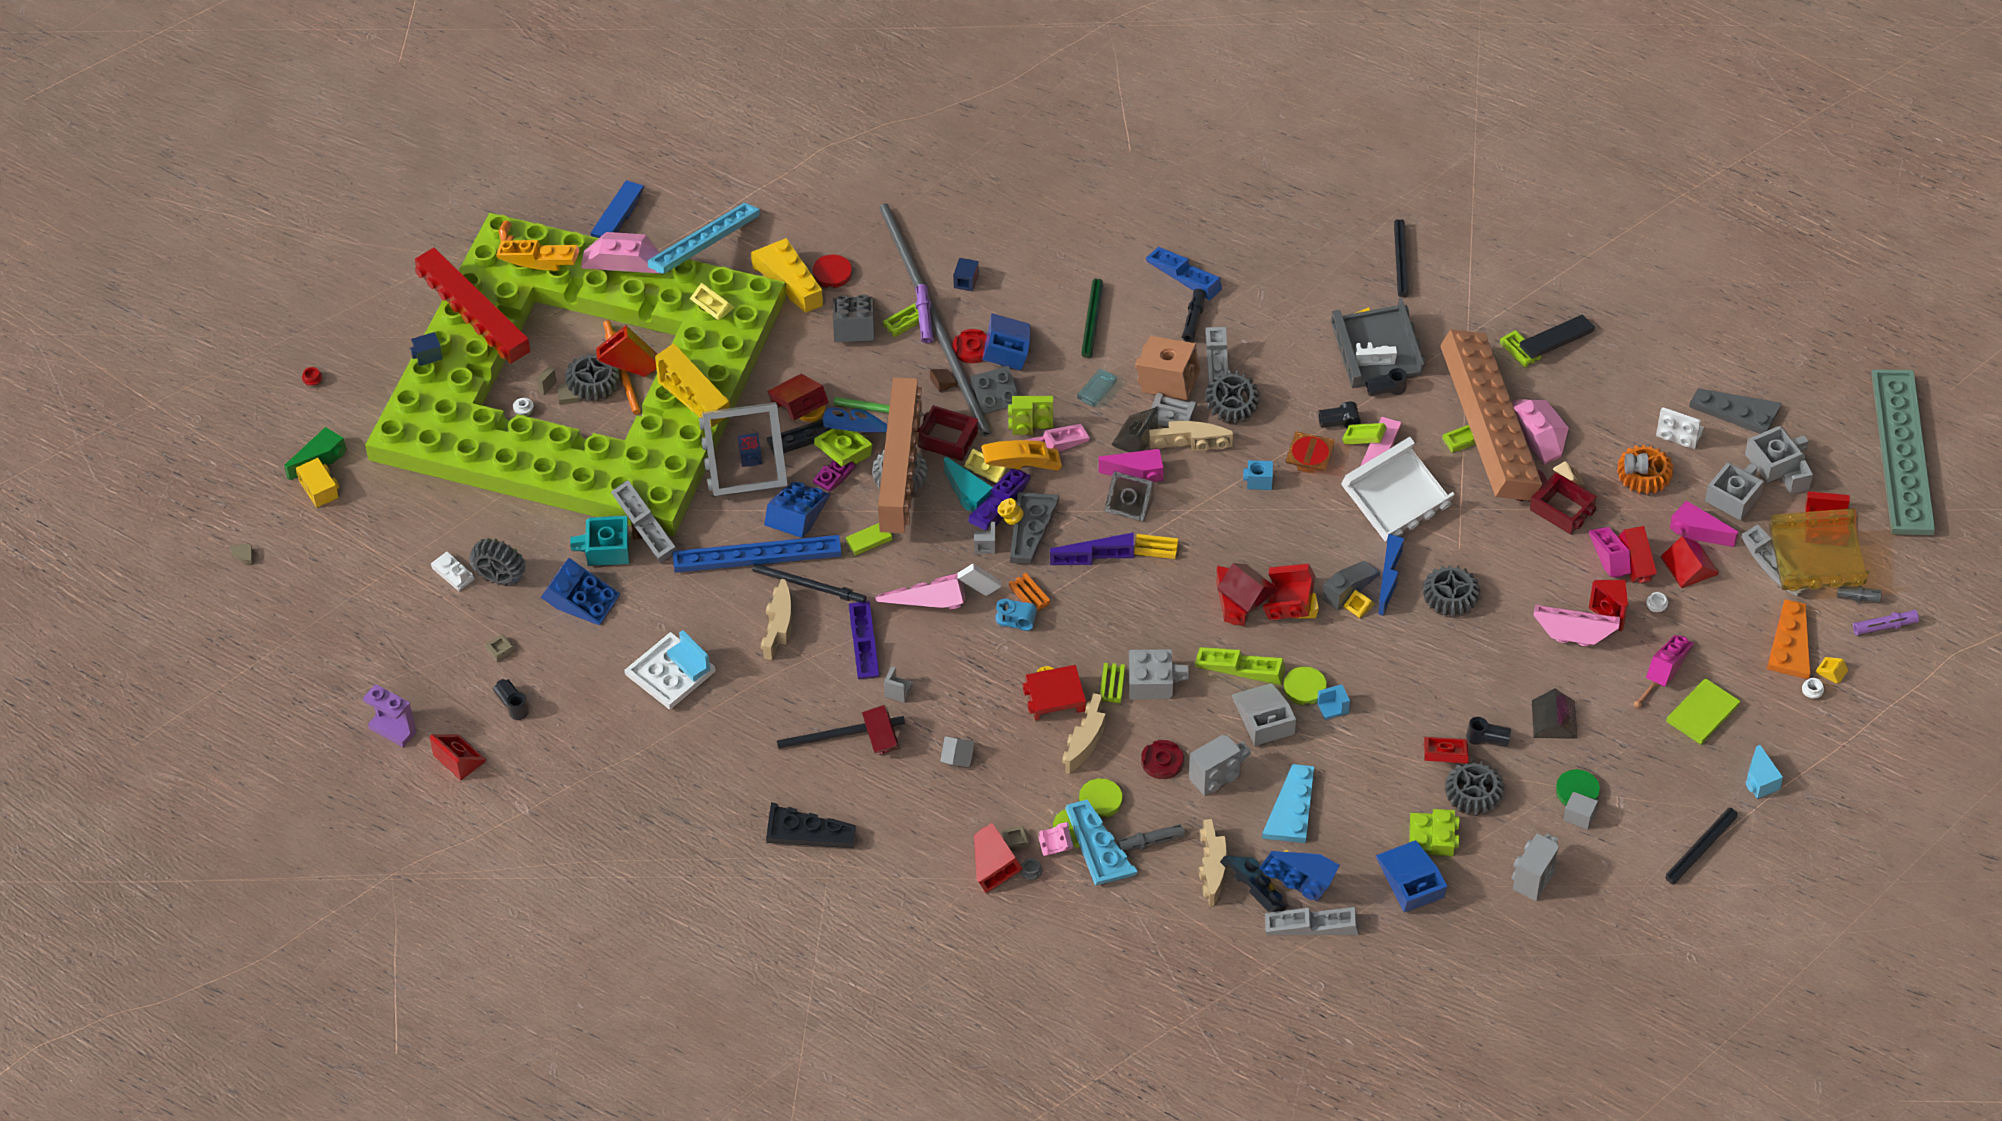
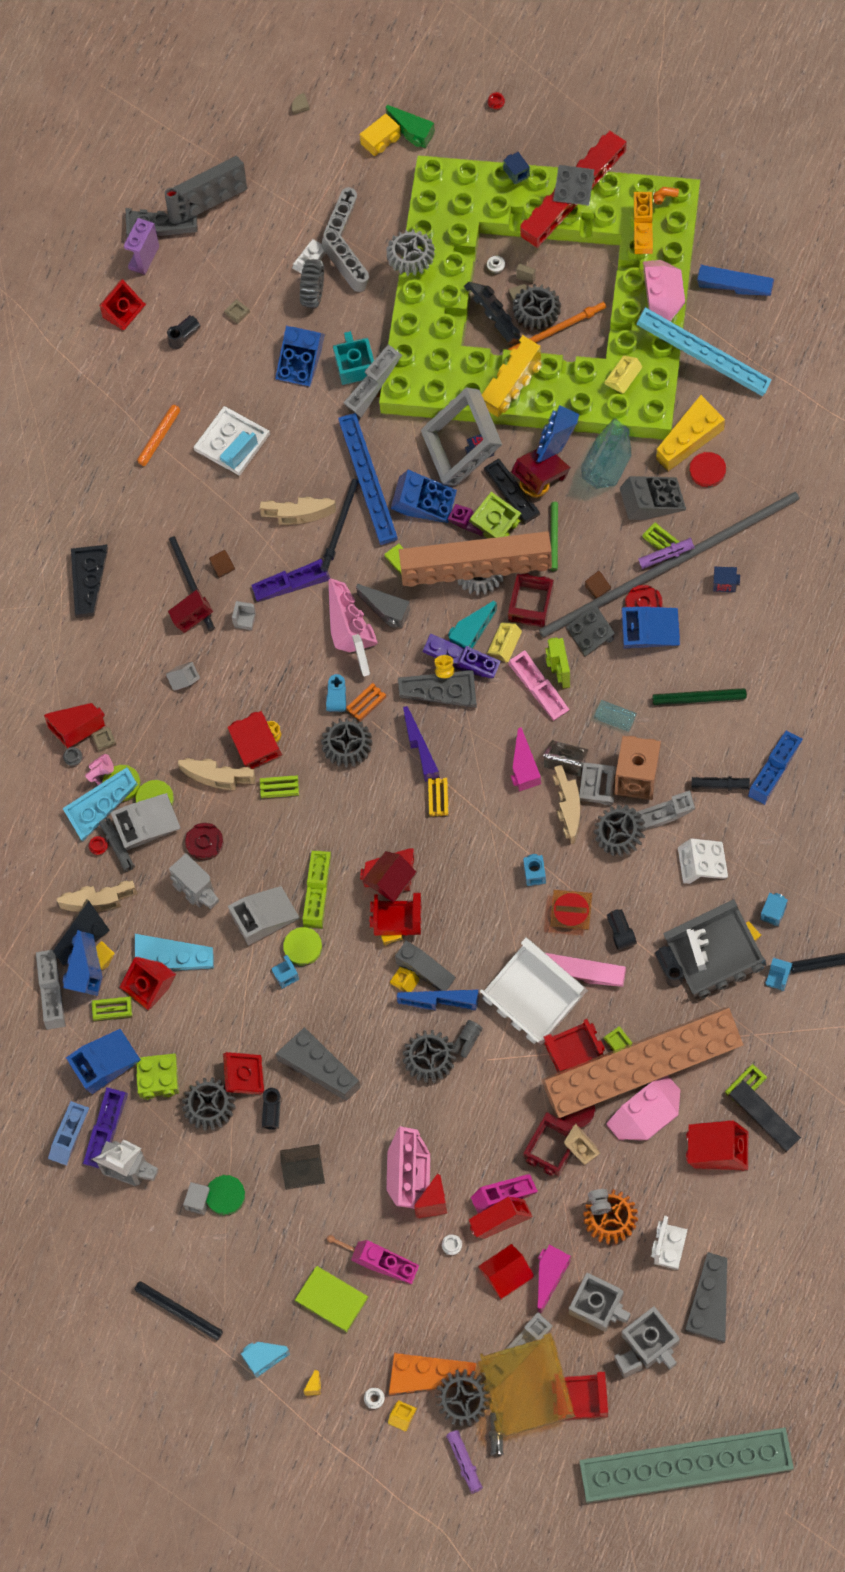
camera: 85 degrees right, 15 degrees up
(336, 637) = (205, 190): none -> dark grey hinge
(353, 713) = (161, 222): none -> dark grey wing
(446, 539) = (356, 274): none -> light grey beam
(476, 293) = (574, 185): none -> dark grey hinge
(500, 449) = (413, 258): none -> light grey gear
(598, 407) = (494, 311): none -> black wing
(627, 352) = (559, 326): red slope -> none
(639, 740) = (158, 435): none -> orange axle
(764, 370) = (556, 432): none -> blue slope
(793, 345) = (607, 456): none -> clear light blue wedge
(824, 700) = (221, 563): none -> reddish brown slope
(868, 424) = (517, 514): blue piece -> none
(921, 557) = (388, 607): none -> dark grey slope
(985, 541) = (416, 656): light grey panel -> none
(1018, 453) = (507, 663): light orange slope -> none
(1075, 613) = (332, 740): none -> dark grey gear
(1130, 496) = (484, 764): clear smoke slope -> none
(1133, 804) = (145, 821): none -> light grey slope
(1147, 857) = (98, 845): none -> red plate
(1153, 674) = (288, 815): light grey hinge -> none
(1276, 343) = (702, 859): none -> white bracket
(1325, 825) = (147, 981): none -> red slope
(1340, 294) = (774, 909): none -> dark azure brick
(1345, 882) = (97, 1017): none -> lime tile
(1364, 433) = (601, 954): lime tile -> none
(1413, 299) = (779, 974): none -> dark azure panel
(1434, 555) = (468, 1036): none -> dark grey hinge
(1444, 684) = (317, 1063): none -> dark grey wedge
(1460, 472) = (574, 1046): none -> red panel
(1490, 891) = (106, 1124): none -> dark purple slope
(1495, 921) = (68, 1133): none -> medium blue slope
(1540, 849) = (120, 1157): none -> white slope
(1584, 374) = (717, 1146): none -> red slope
(1794, 734) = (314, 1385): none -> yellow slope
(1818, 613) = (446, 1401): none -> dark grey gear

